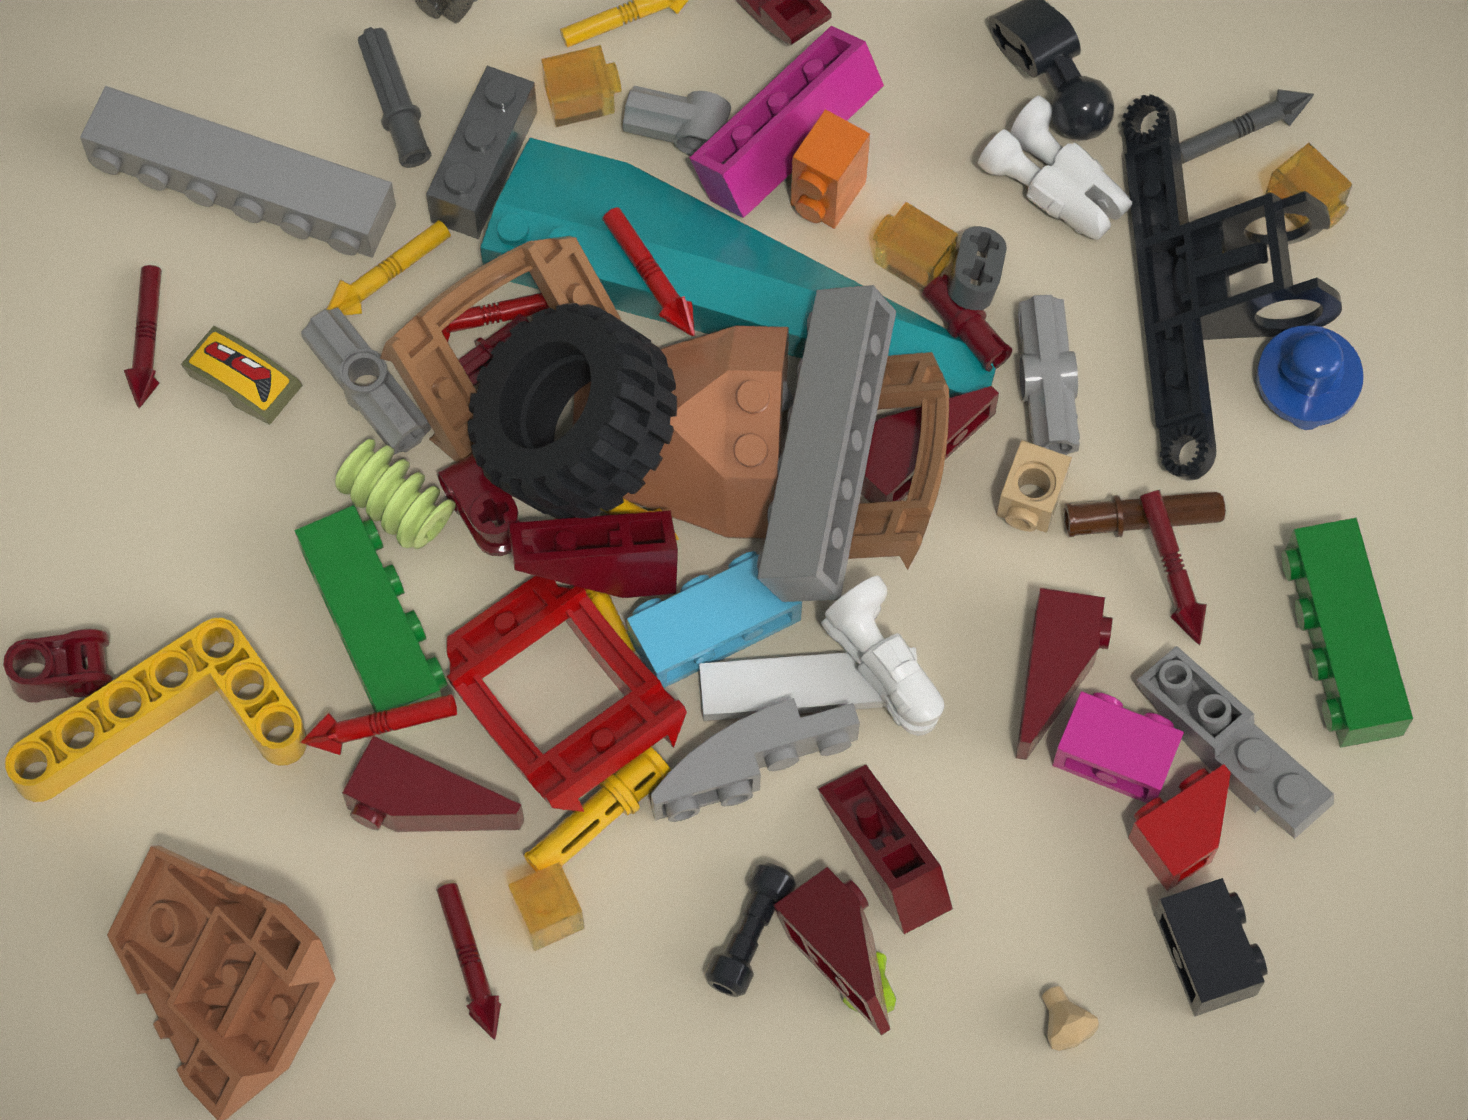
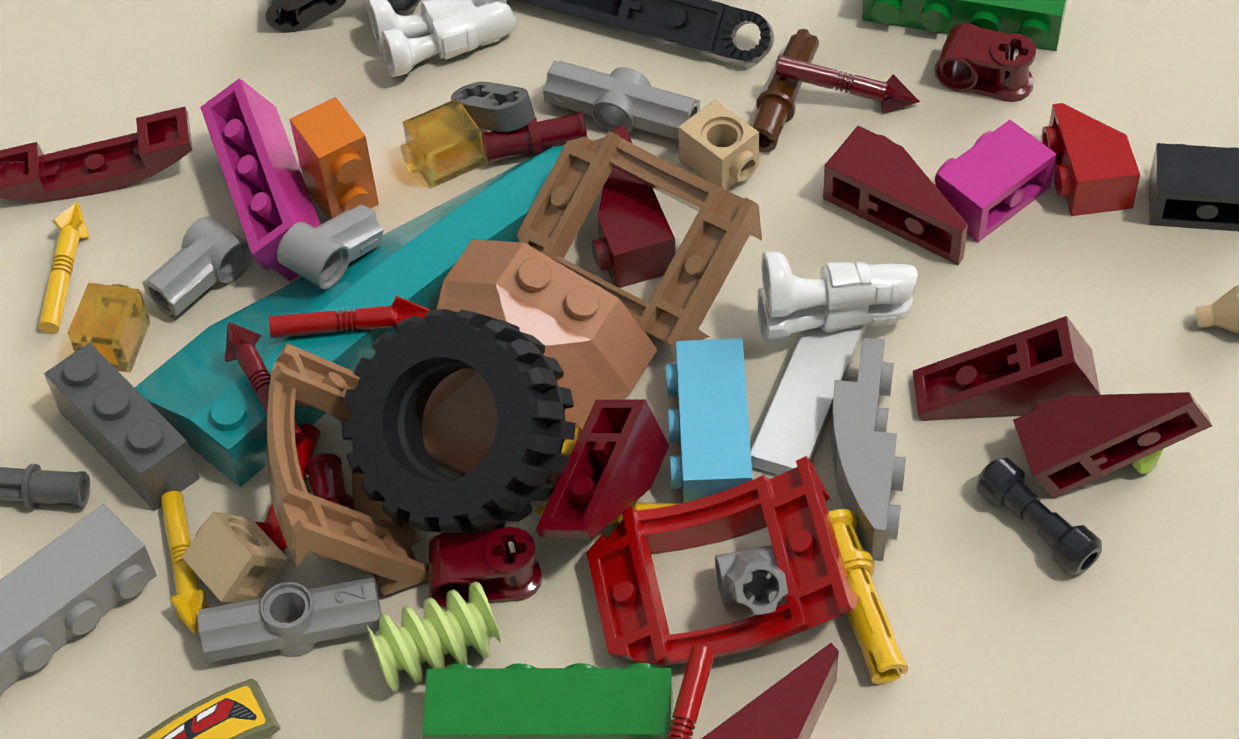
camera: 60 degrees left, 15 degrees down
(390, 302) = (235, 558): none -> tan brick
(546, 906) = (942, 671): clear yellow brick -> none
(552, 717) = (751, 579): none -> light grey piece
(574, 204) = (241, 347): none -> dark red piece
(716, 213) = (325, 251): none -> light grey piece
(827, 445) = (613, 245): light grey brick -> none
(1225, 733) = (985, 106): light grey slope -> none
(1270, 677) = (982, 61): none -> dark red piece

